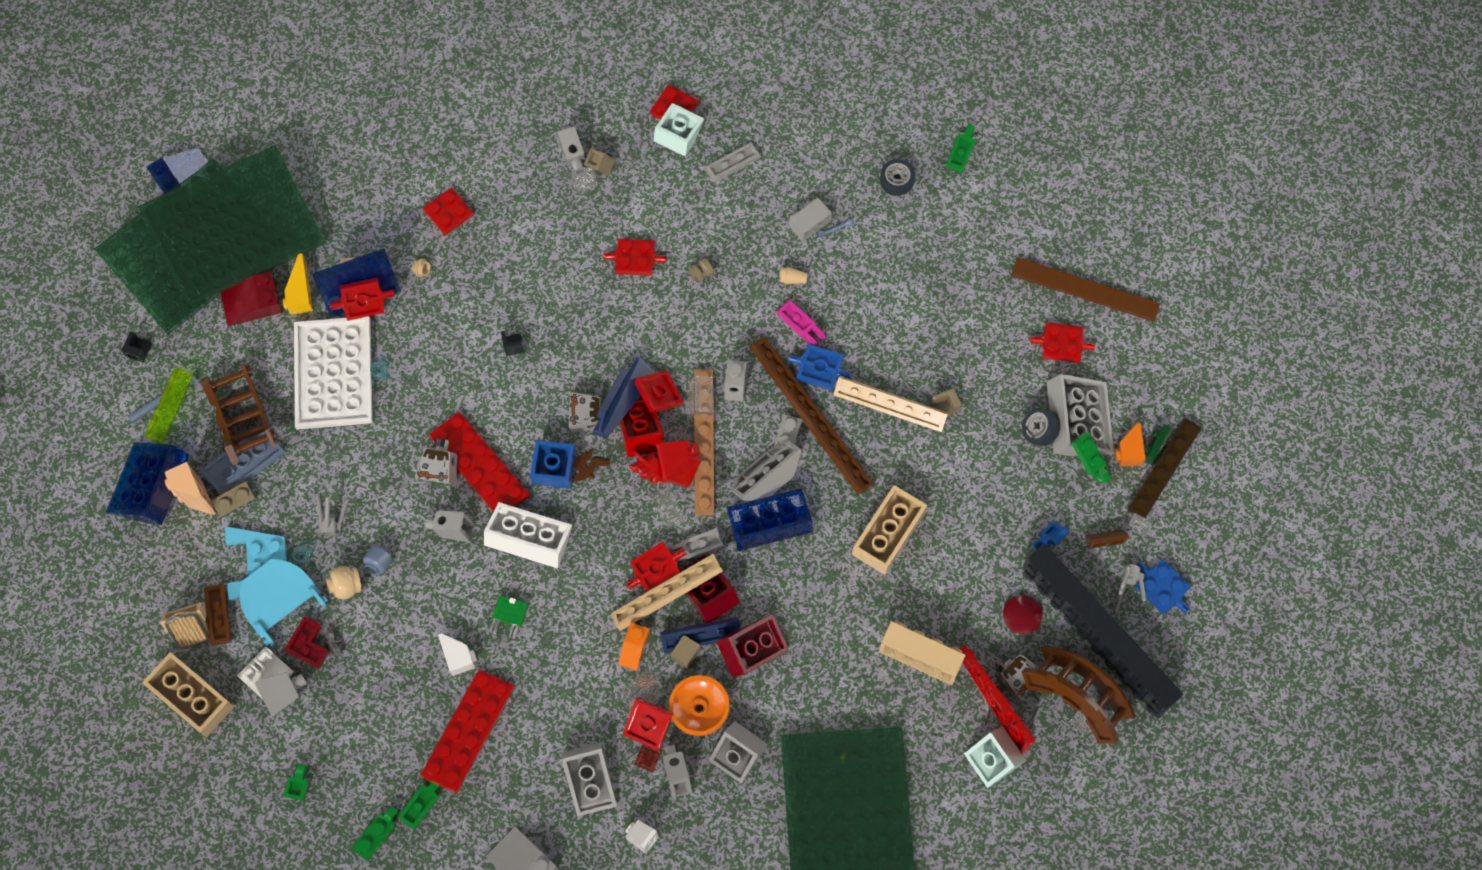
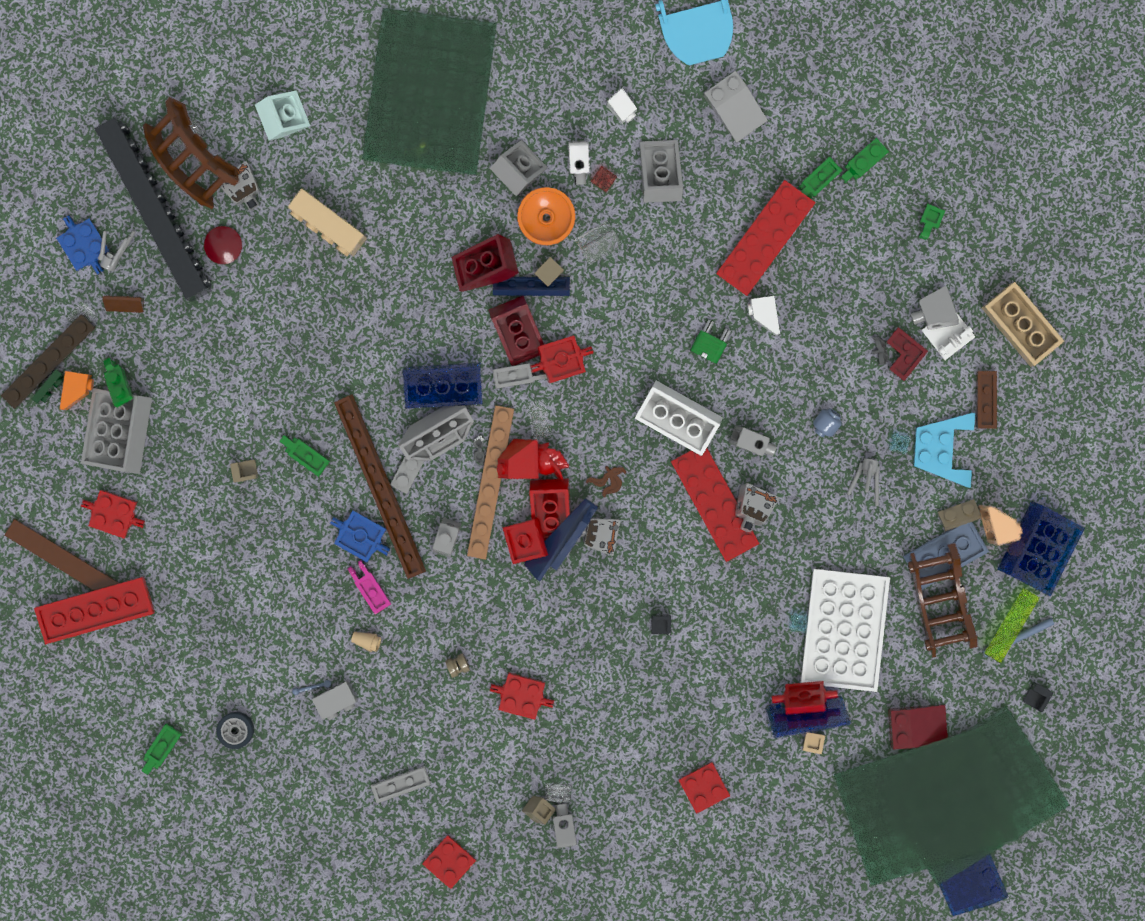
camera: 170 degrees left, 20 degrees up
(187, 625) = (1016, 395): tan piece -> none
(274, 593) = (930, 409): medium azure piece -> none
(297, 291) = (868, 727): yellow slope -> none
(344, 582) = (862, 405): tan piece -> none
(421, 267) = (741, 727): tan plate -> none
(553, 464) = (642, 484): blue brick -> none
(634, 646) = (596, 287): orange slope -> none
(647, 723) = (597, 209): red plate -> none
(666, 592) = (555, 331): tan plate -> none
(678, 129) = (449, 830): light aqua slope -> none
(701, 396) = (484, 527): clear panel -> none
(889, 530) = (329, 351): tan brick -> none
(890, 403) = (299, 482): tan plate -> none
(891, 430) = (305, 455): none -> green hinge
(998, 703) = (266, 159): red wing -> none
(1041, 427) = (150, 421): black wheel -> none
(1050, 535) = (175, 316): blue plate -> none
(1055, 252) = (94, 610): none -> red plate

